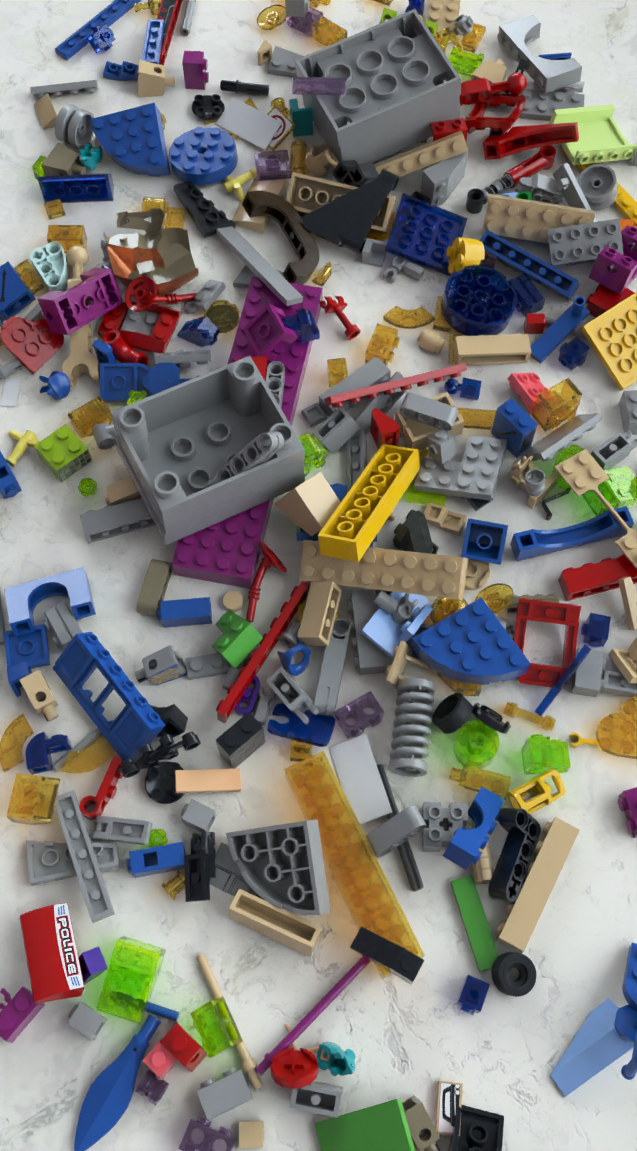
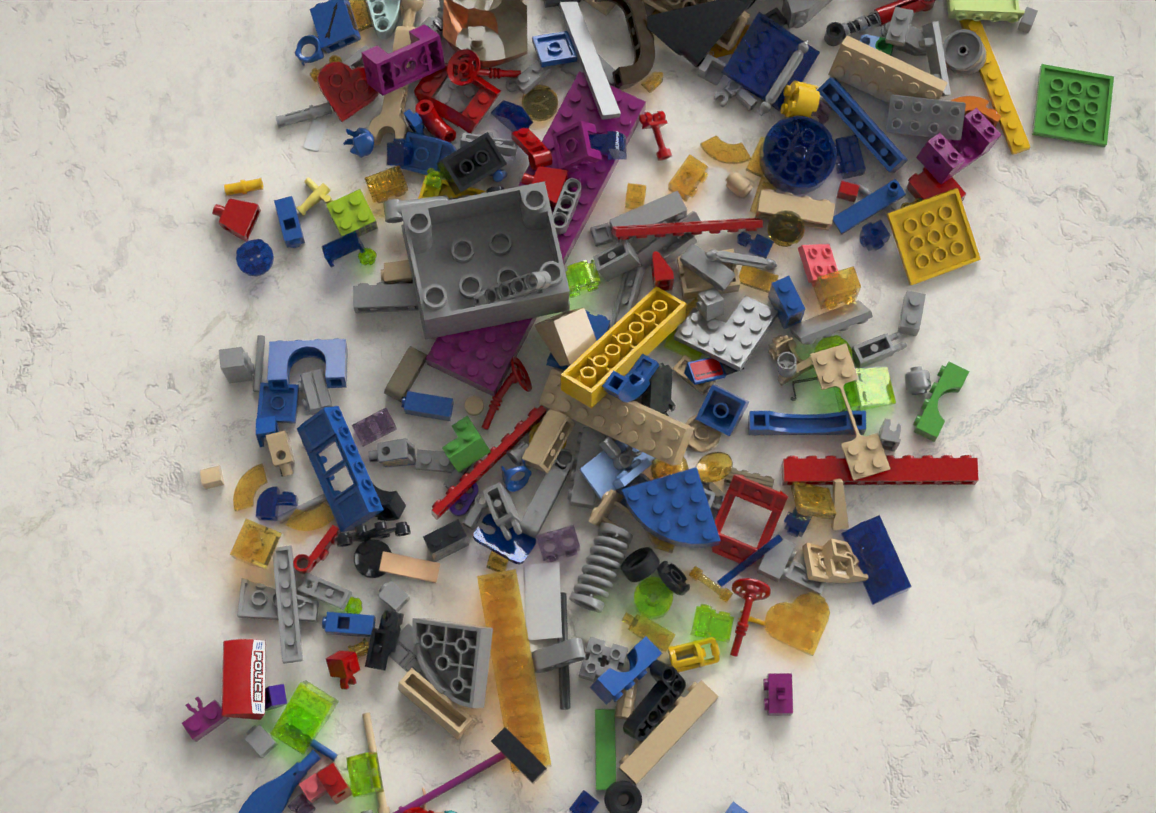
camera: 15 degrees right, 10 degrees up
(60, 482) = (342, 247): none -> clear blue hinge
(96, 382) = (399, 152): none -> clear blue brick
(134, 646) = (374, 427): none -> clear purple brick
(162, 907) = (343, 665): none -> red brick
(169, 370) = (471, 163): none -> black slope
(223, 266) = (554, 48): none -> plate
(230, 348) = (537, 152): none -> red plate
(392, 530) = (634, 382): none -> blue arch
(443, 242) = (784, 77): none -> light grey wheel
(454, 509) = (704, 370): none -> slope
(457, 398) = (740, 259): none -> light grey wheel
(489, 366) = (786, 228): none -> clear yellow tile
(533, 176) = (899, 26): none -> light grey plate
(576, 717) = (747, 585): none -> red dish
(606, 605) = (813, 500): none -> clear yellow plate

